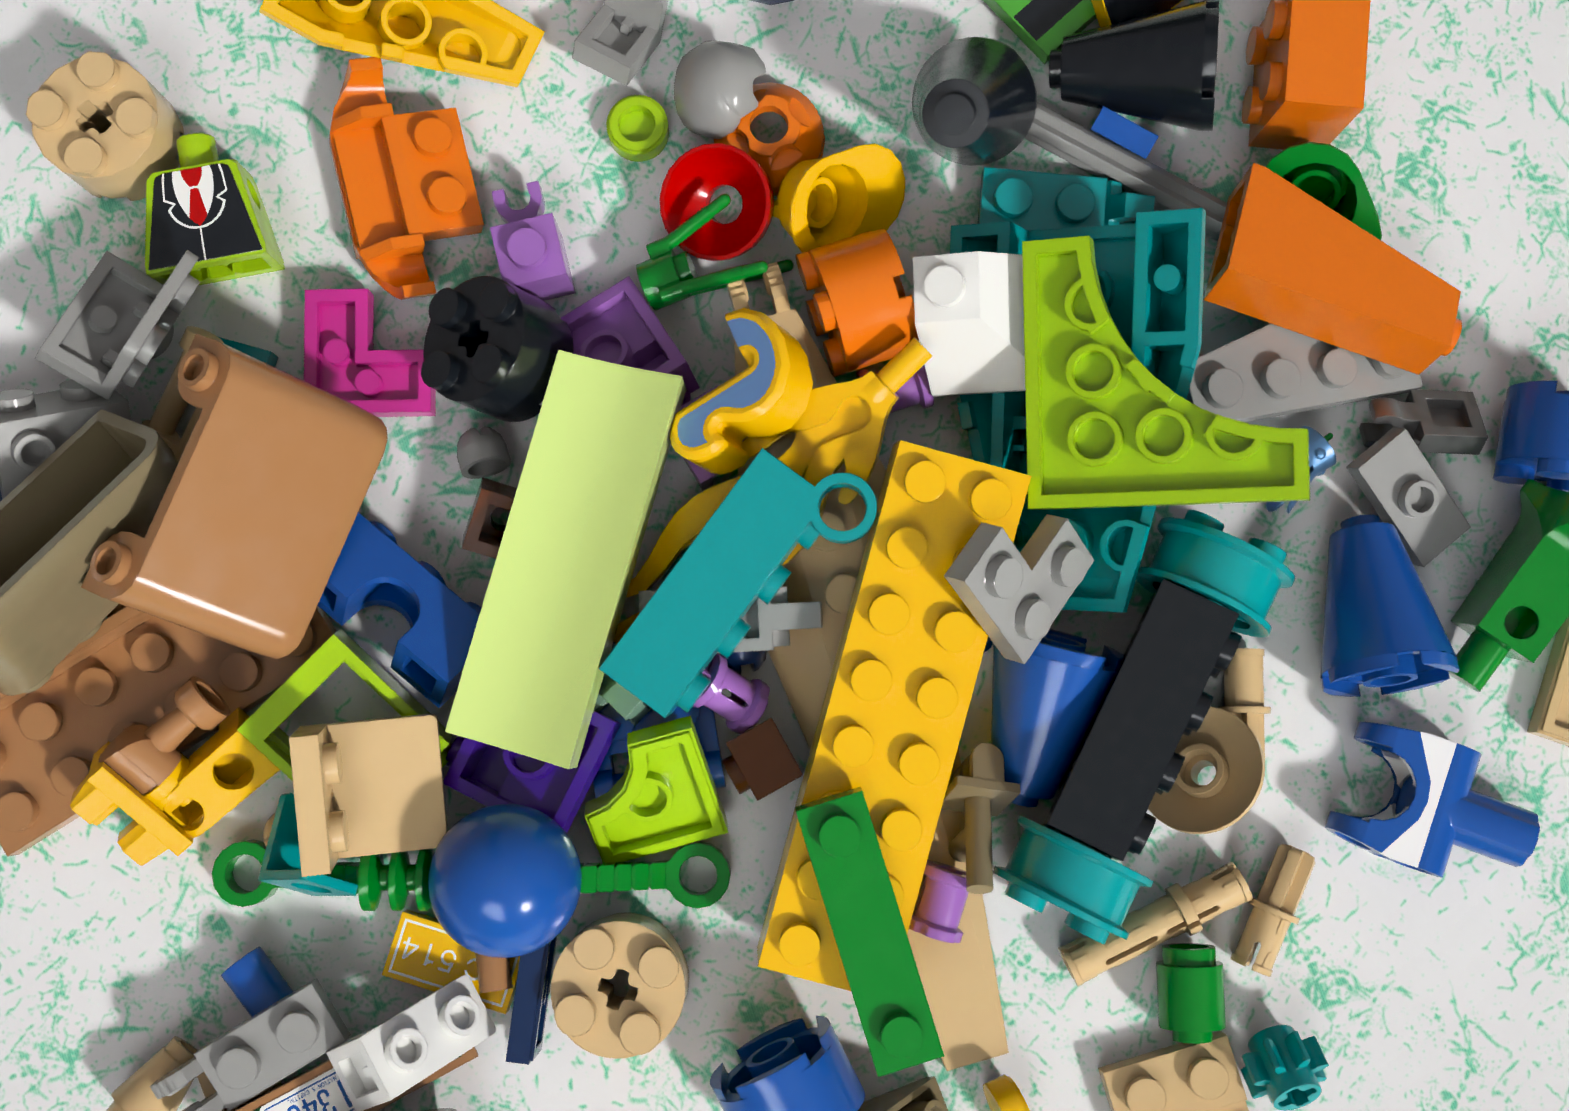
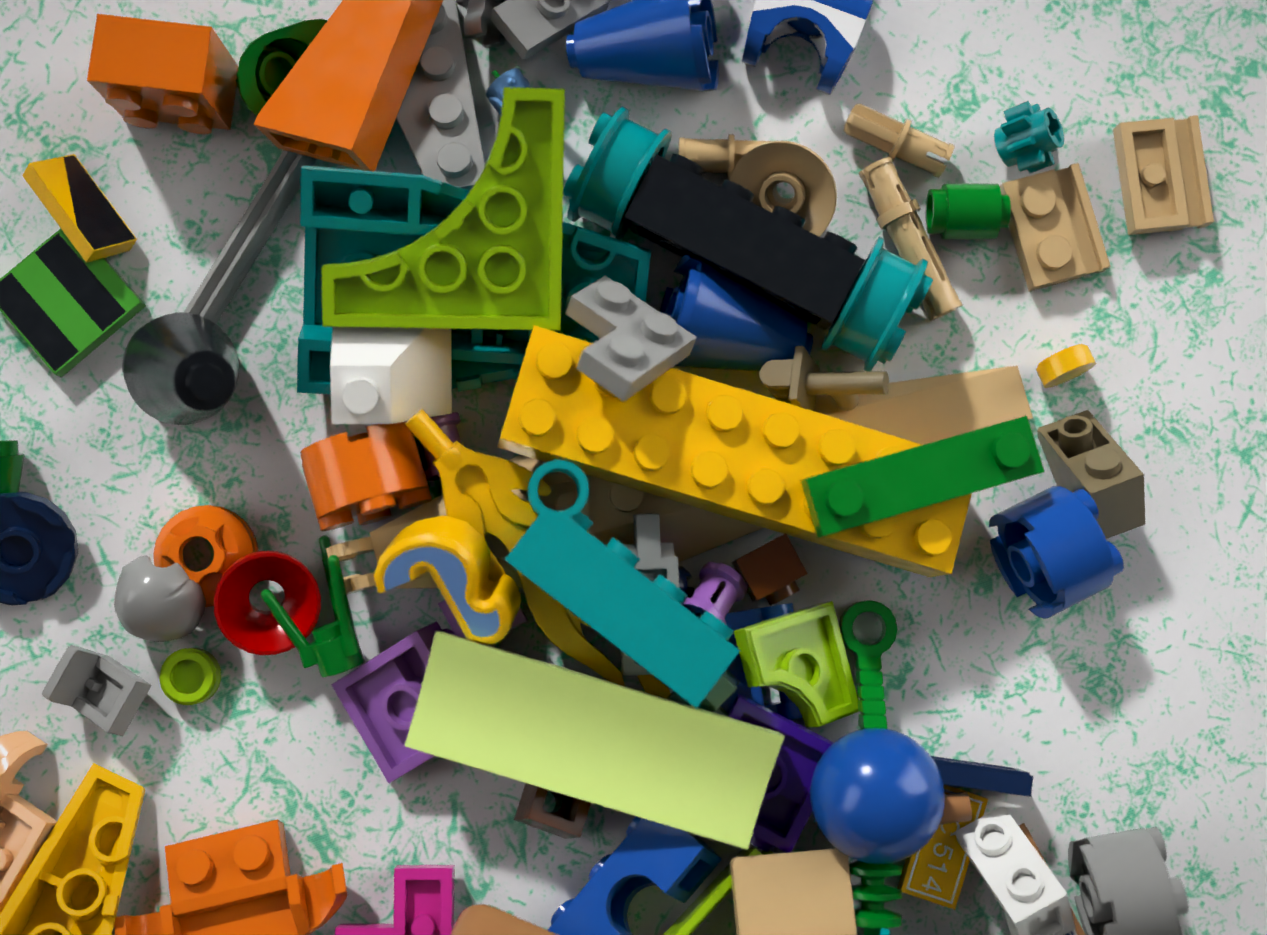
camera: 90 degrees left, 0 degrees up
(482, 453) = (490, 821): light grey hinge -> none
(493, 347) = (397, 808): black brick -> none
(531, 247) = (304, 775): medium lavender brick -> none
(587, 1003) = (996, 703): tan brick -> none
(840, 195) = (266, 491): yellow piece -> none
(940, 903) = (895, 416): medium lavender bush -> none
(1056, 200) = (277, 298): teal hinge -> none
(1124, 132) = (216, 236): blue tile -> none
(1145, 66) = (156, 214): black cone -> none

